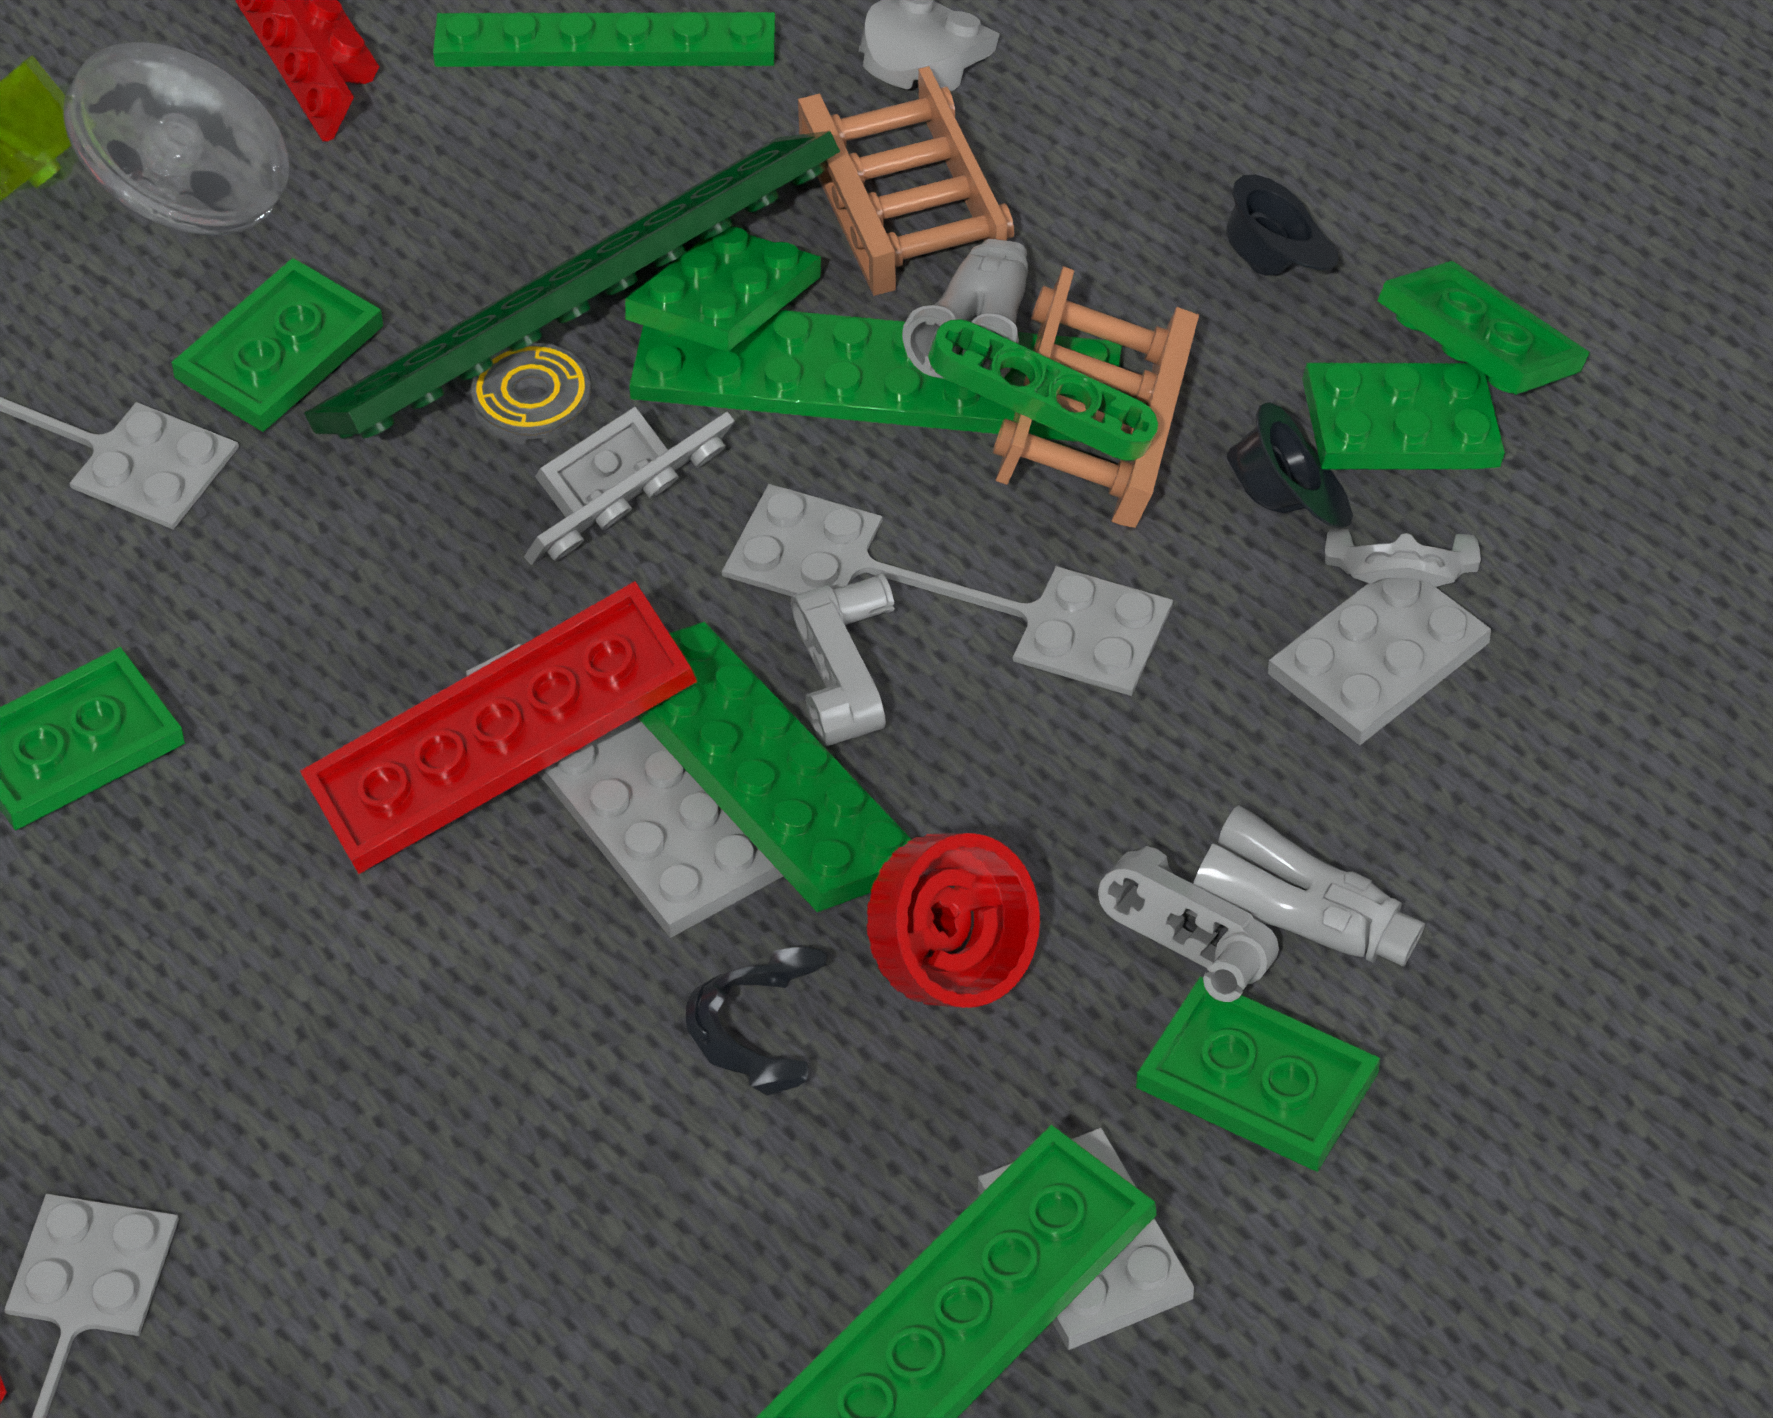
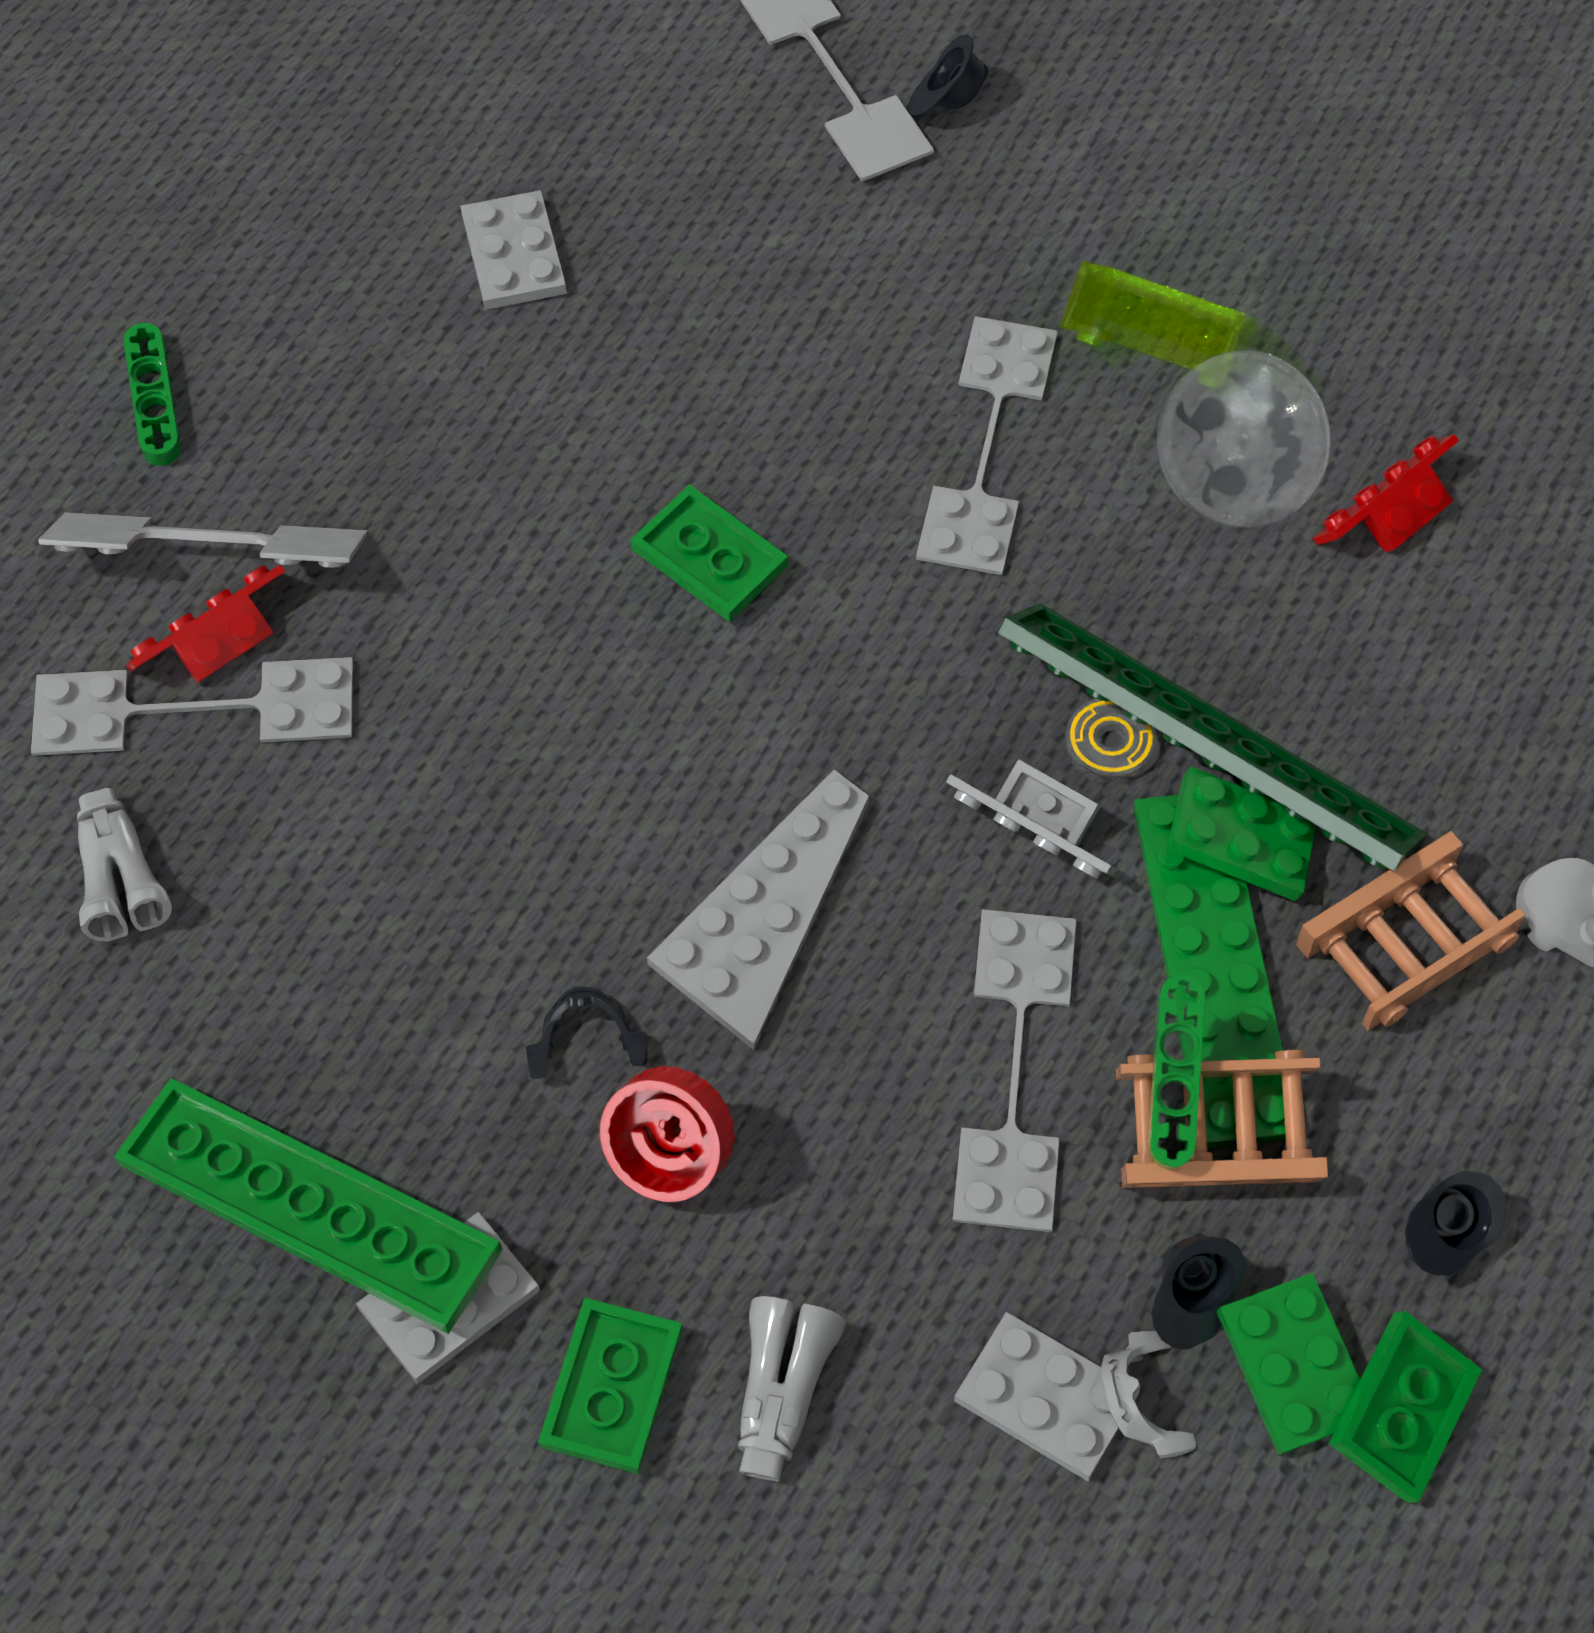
camera: 75 degrees right, 10 degrees up
(277, 344) = (1096, 567): green plate -> none
(498, 726) = (773, 800): red plate -> none
(605, 39) = (1488, 692): green plate -> none
(773, 776) = (796, 978): green plate -> none
(850, 701) = (950, 983): light grey beam -> none
(982, 291) = (1264, 1012): light grey piece -> none
(1157, 912) = (743, 1265): light grey beam -> none

